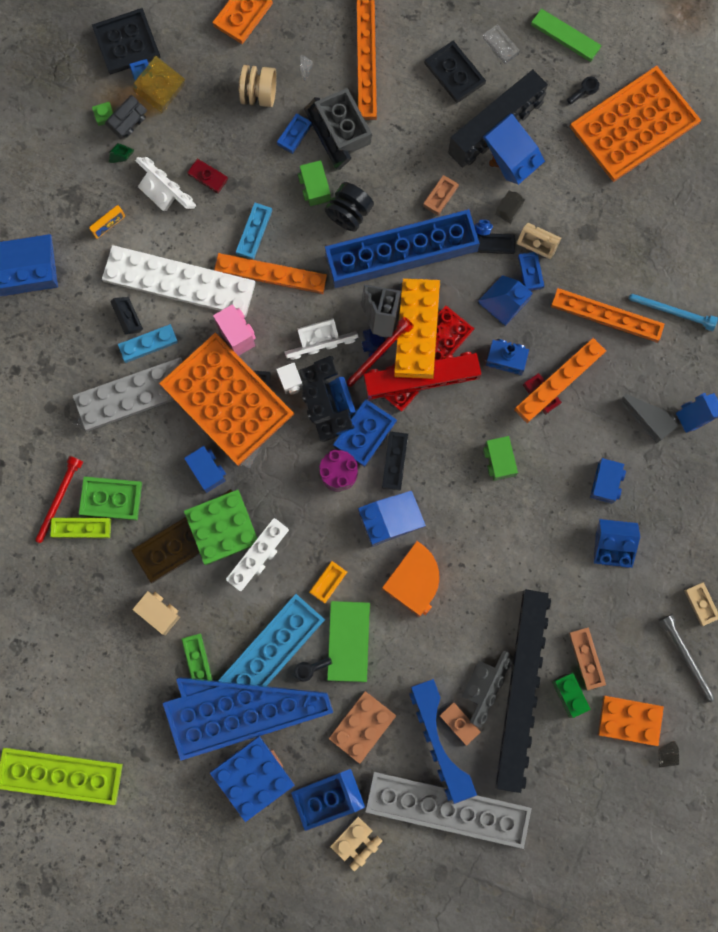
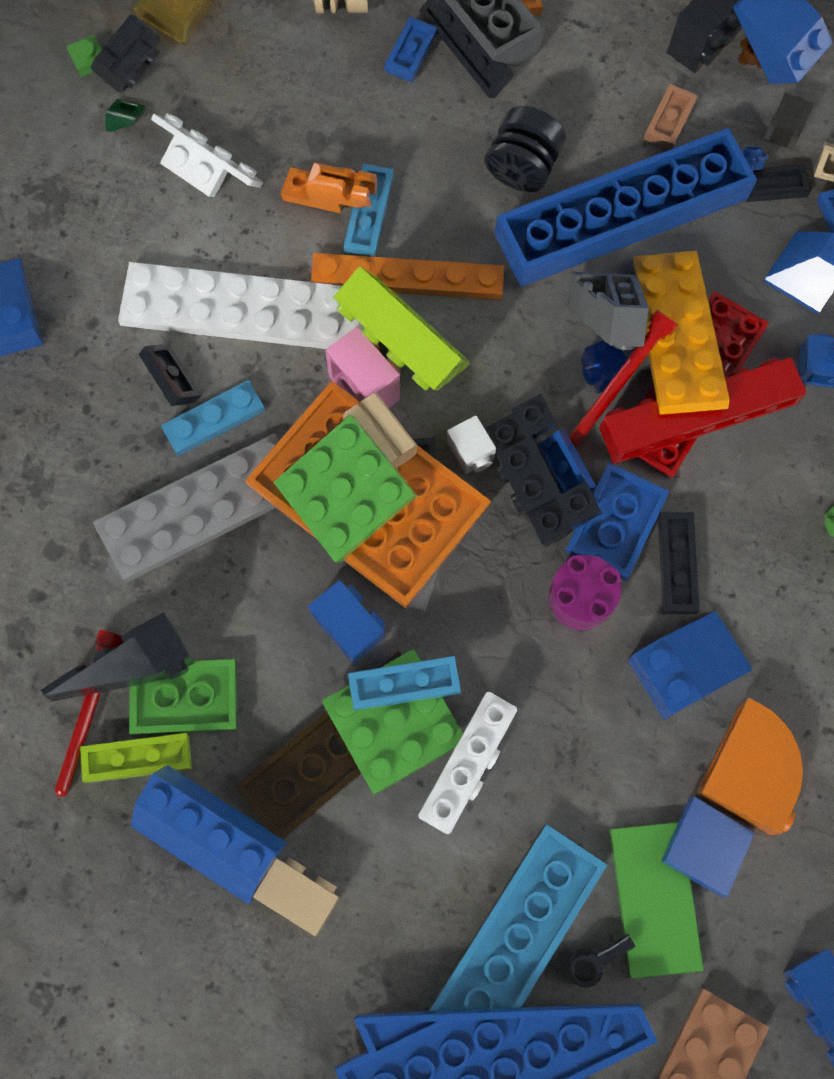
camera: 10 degrees left, 5 degrees down
(92, 473) = (146, 656): none -> black wedge
(107, 221) = (115, 224): light orange tile -> none
(112, 572) = (206, 832): none -> blue slope
(196, 657) = (382, 971): bright green tile -> none
(207, 176) = (276, 133): dark red plate -> none
(212, 396) = (345, 489): none -> bright green plate
(228, 507) = (404, 683): none -> dark azure plate
(232, 215) = (329, 187): none -> orange plate
(235, 367) = (384, 429): none -> tan brick
(258, 308) = (400, 330): none -> lime slope
(315, 183) = (459, 122): bright green brick -> none
(319, 336) = (508, 368): white bracket -> none
(328, 582) = (598, 795): light orange tile -> none
(381, 617) = (708, 847): none -> blue tile

